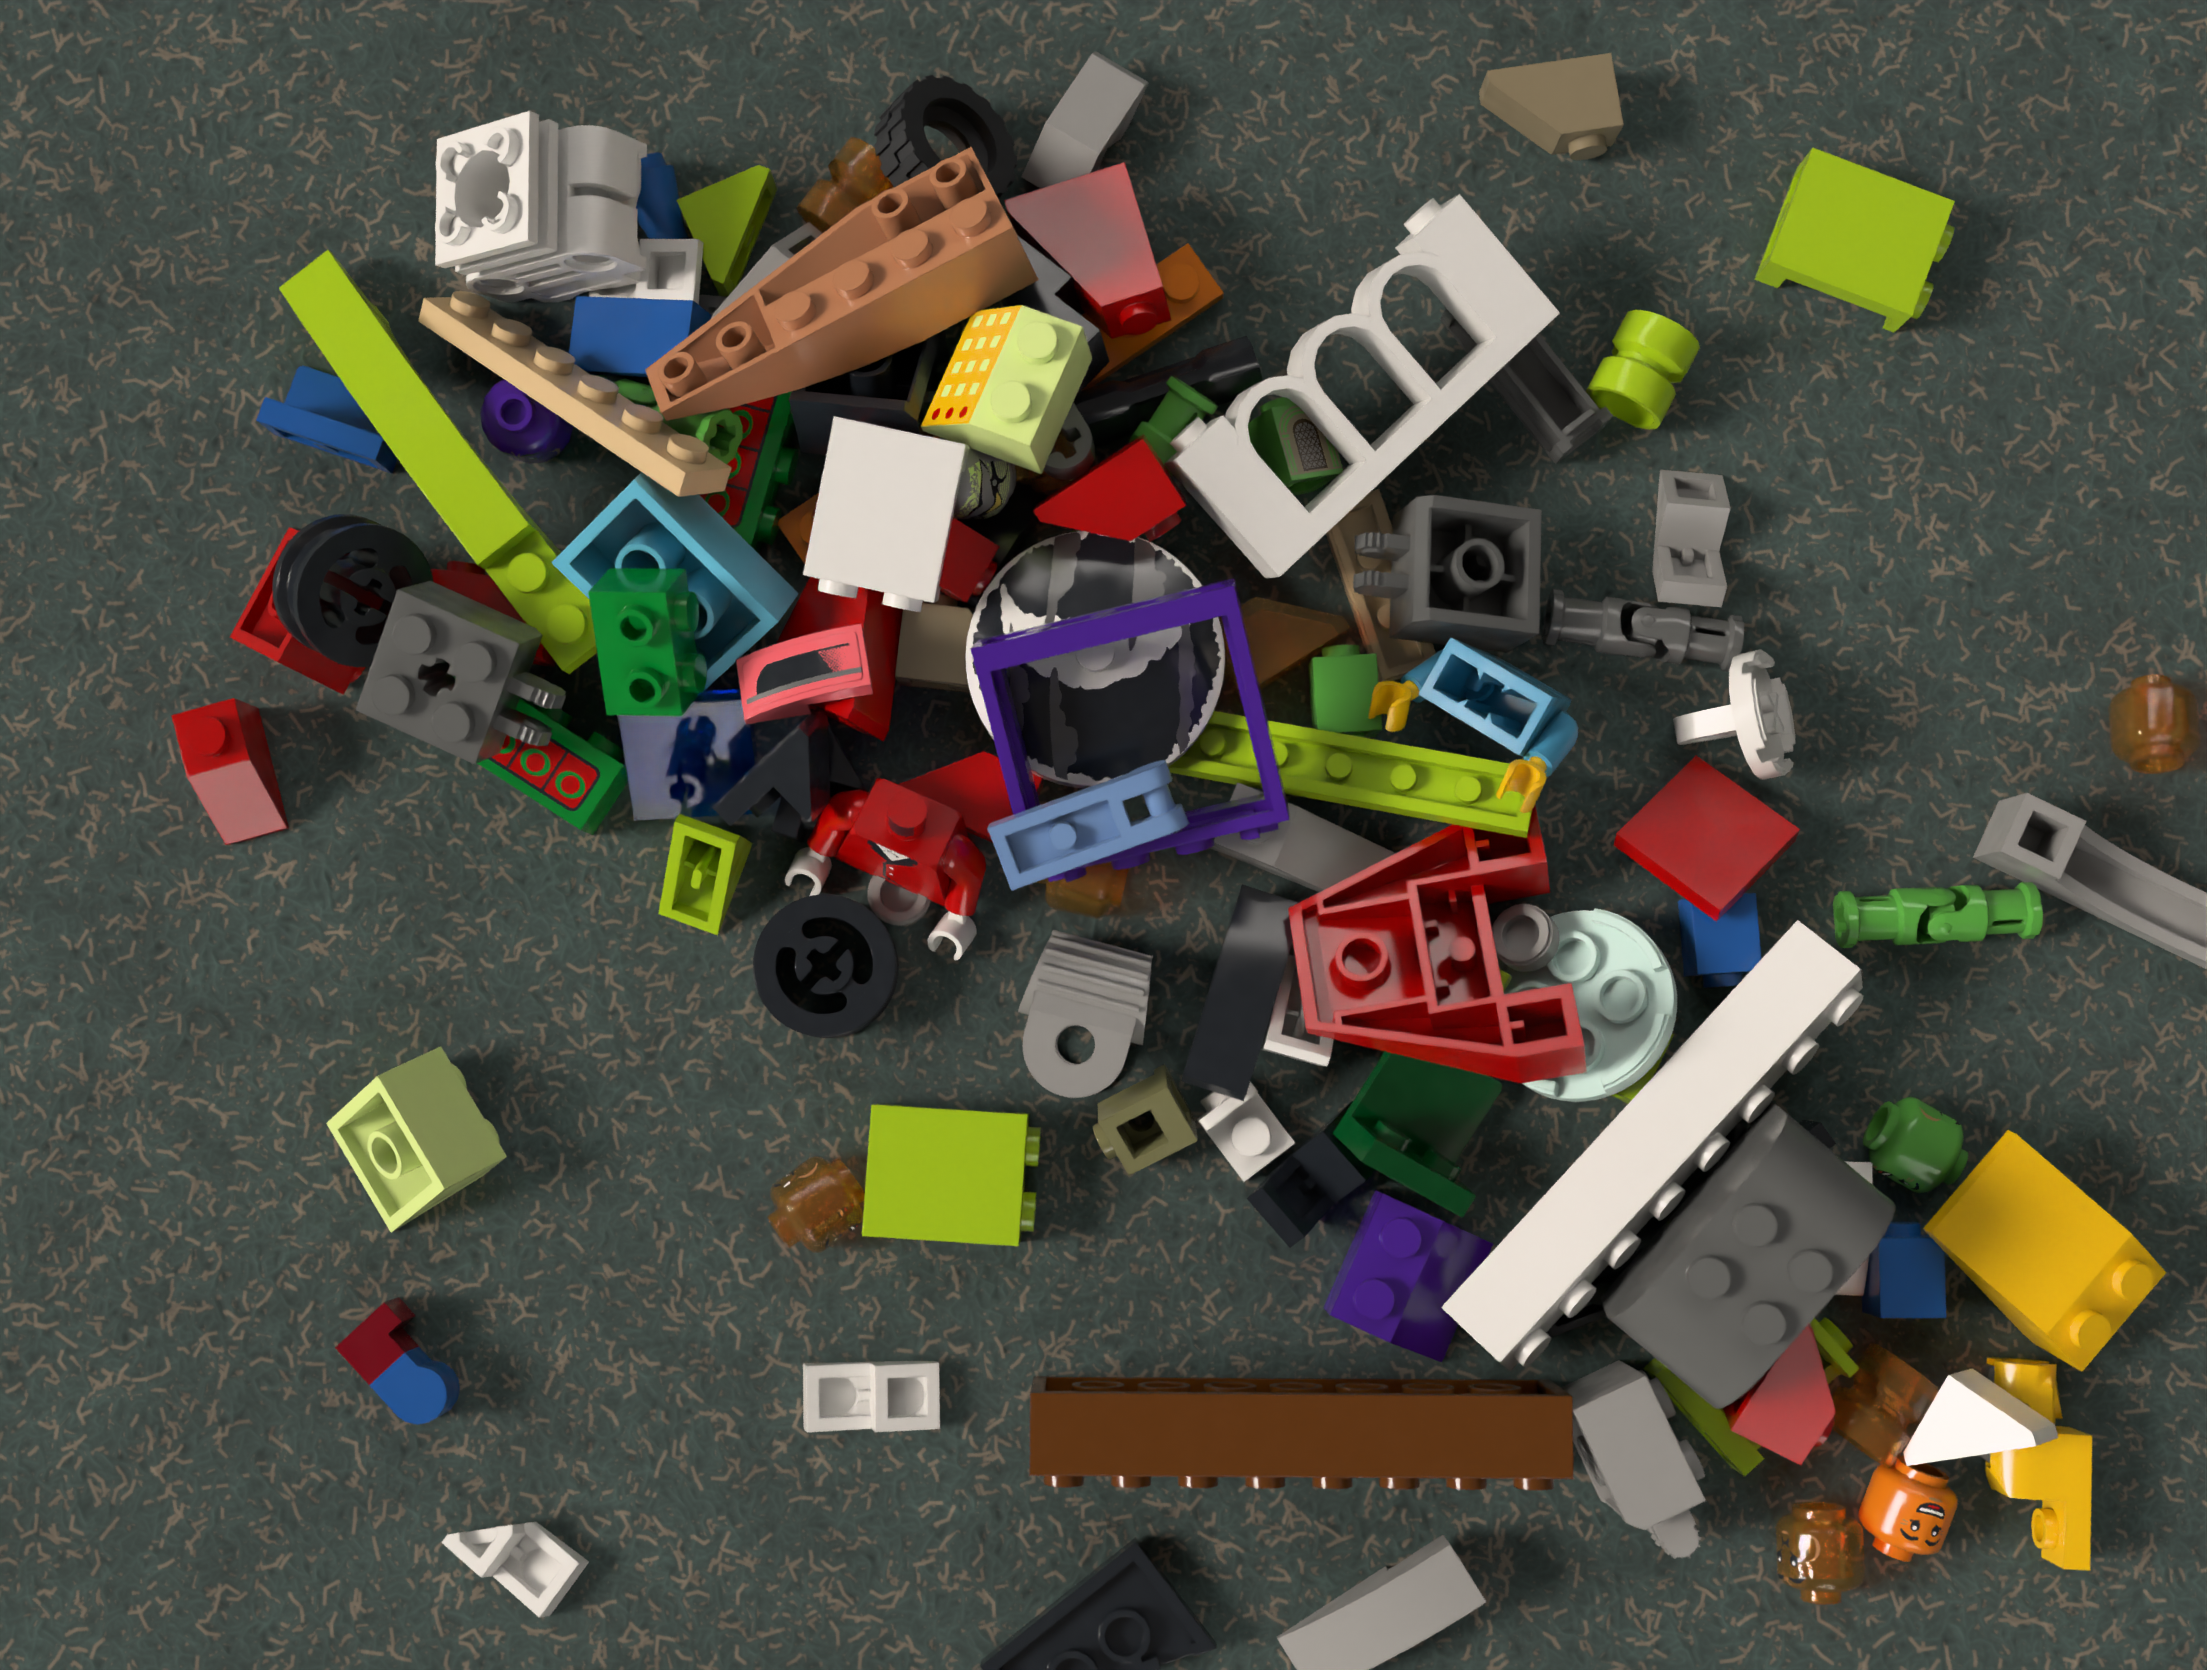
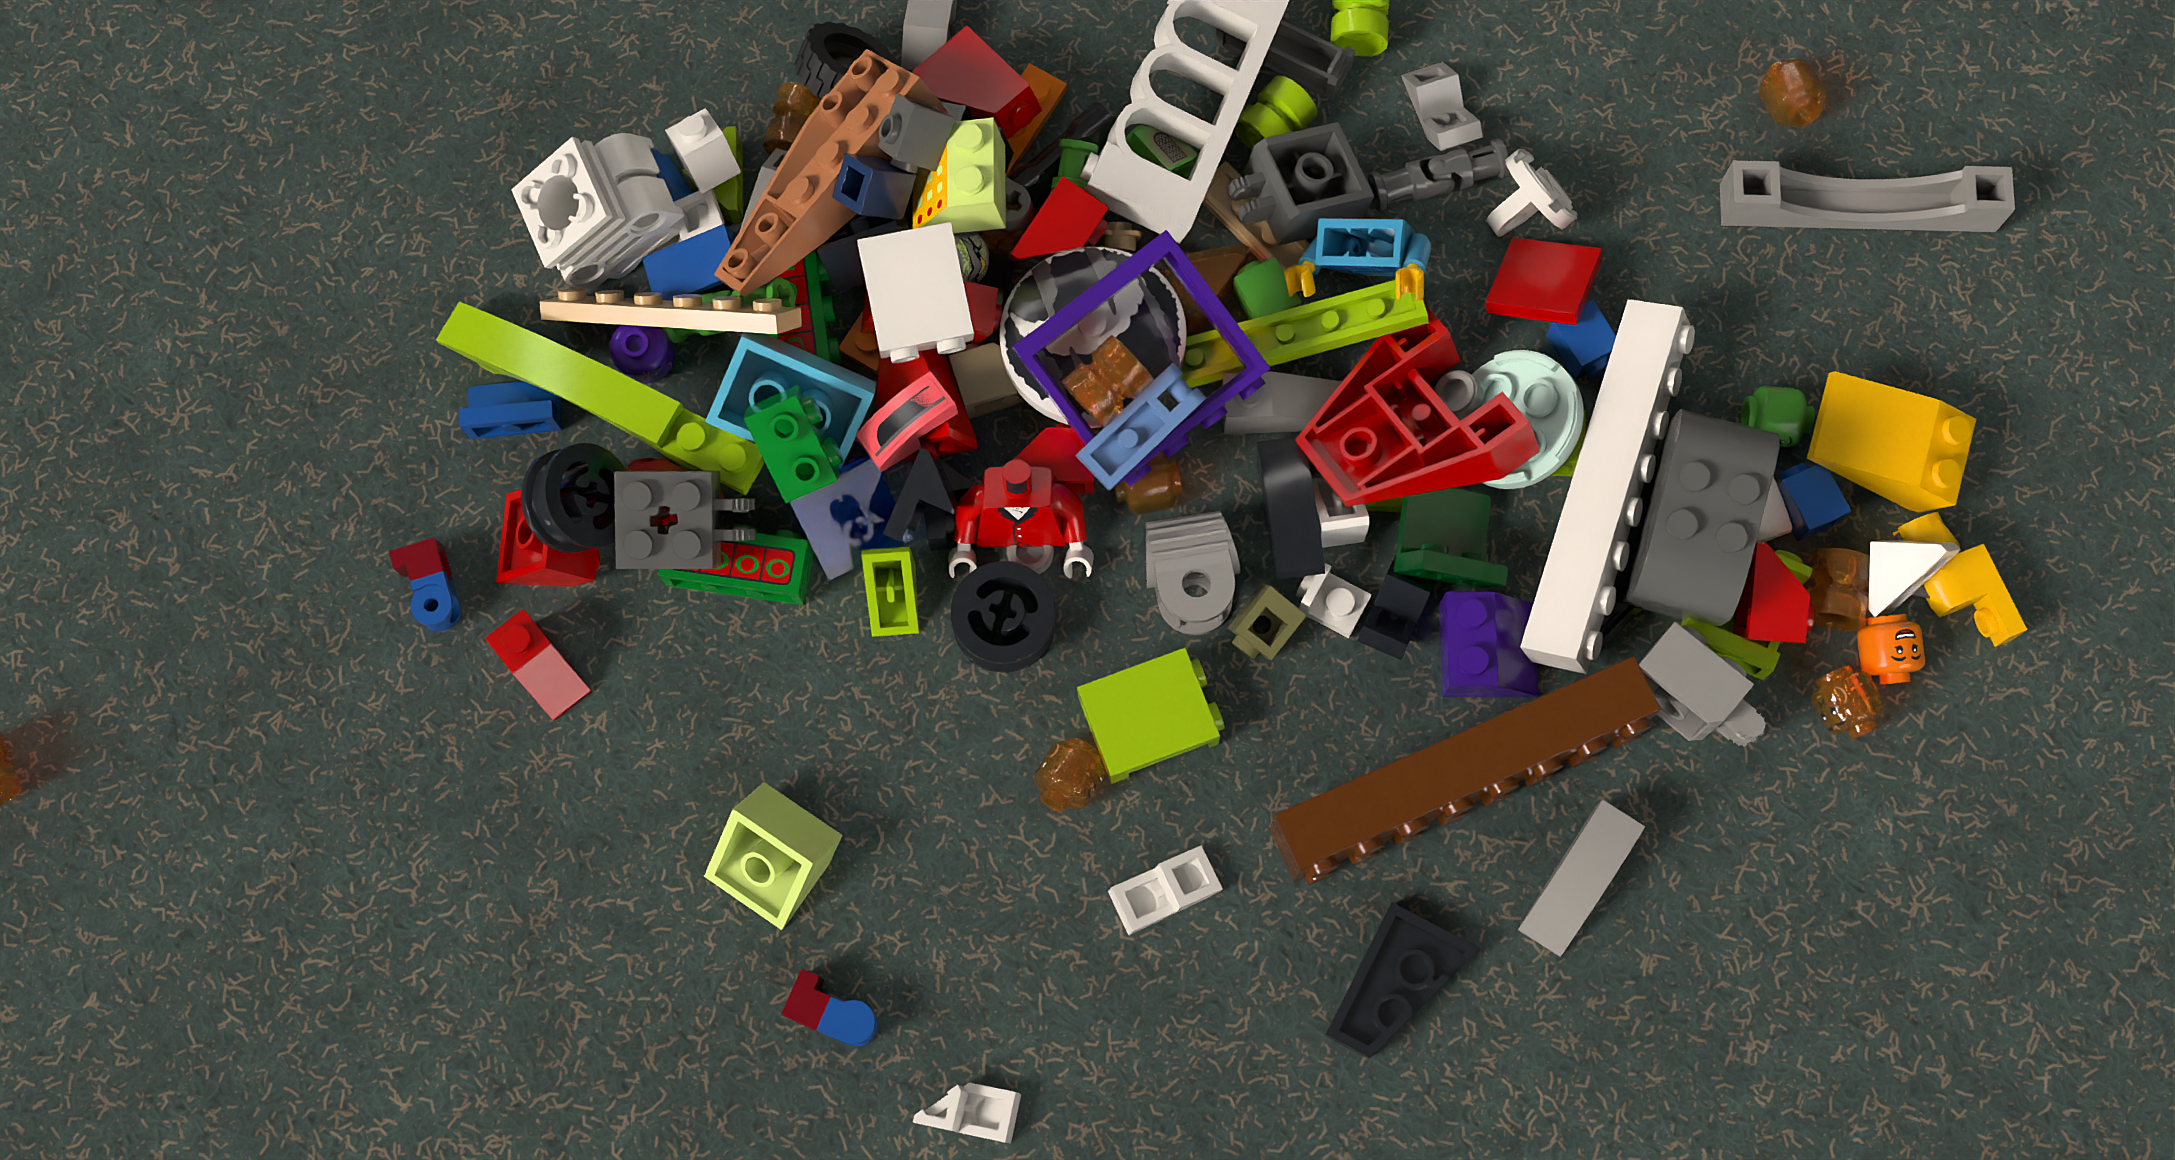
camera: 20 degrees left, 10 degrees down
(145, 606) = (435, 595): none -> leg
(705, 191) = (703, 150): none -> white brick
(892, 347) = (873, 186): none -> dark blue brick
(974, 301) = (915, 134): none -> dark grey brick
(1067, 752) = (1107, 380): none -> clear orange wheel
(1195, 534) = (1120, 237): none -> tan plate
(1473, 459) = (1280, 110): none -> lime wheel
(1942, 914) = (1718, 266): bright green piece -> none

